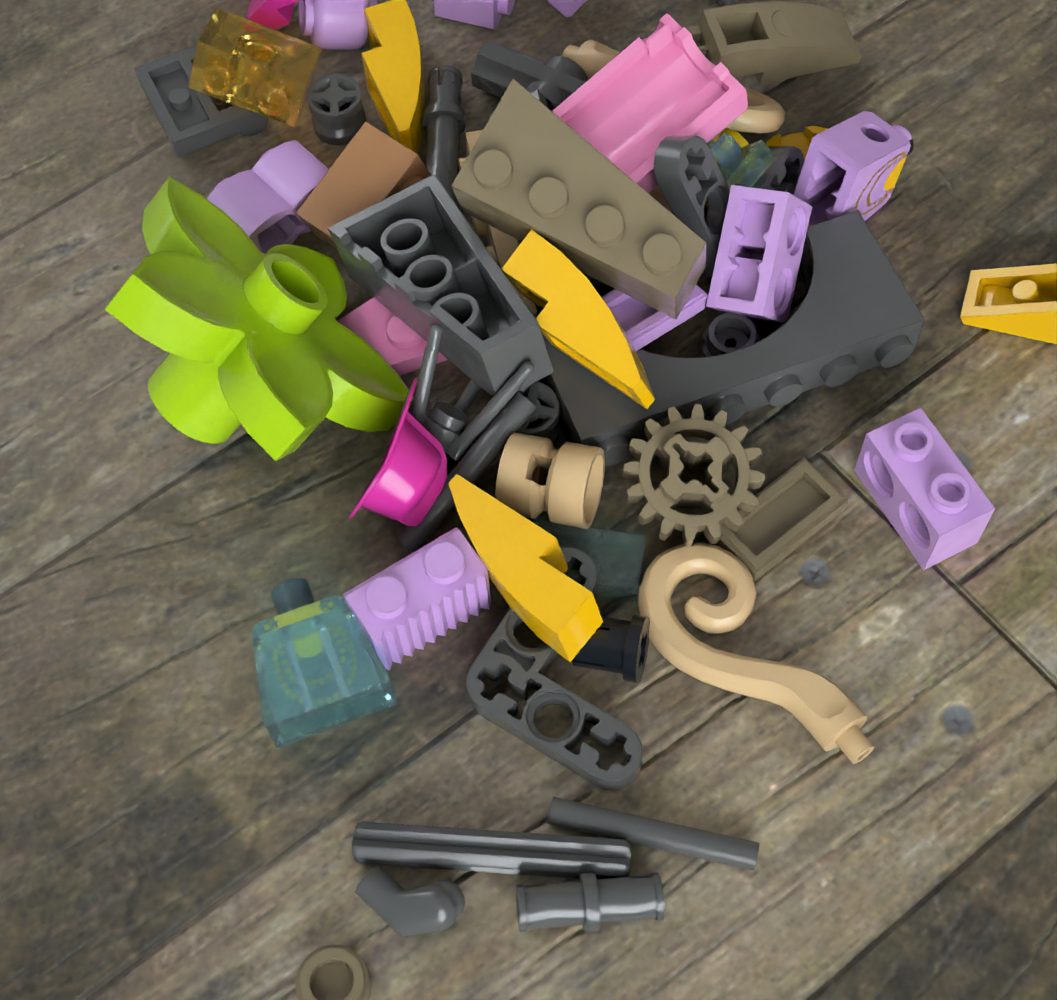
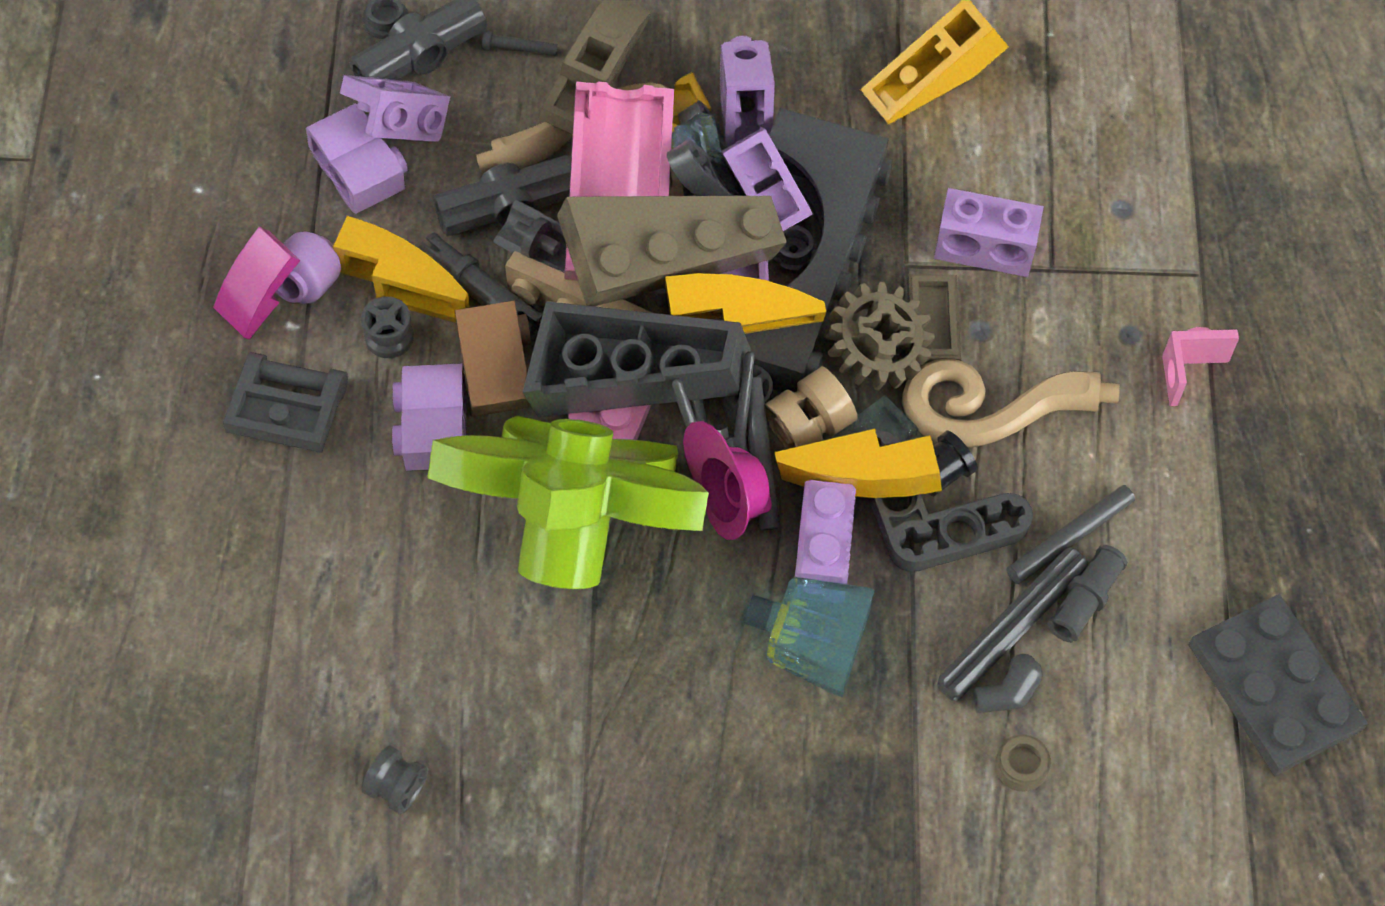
camera: 55 degrees left, 0 degrees up
(254, 67) = (316, 345): clear yellow brick -> none
(1001, 791) = (1193, 347): none -> bright pink bracket

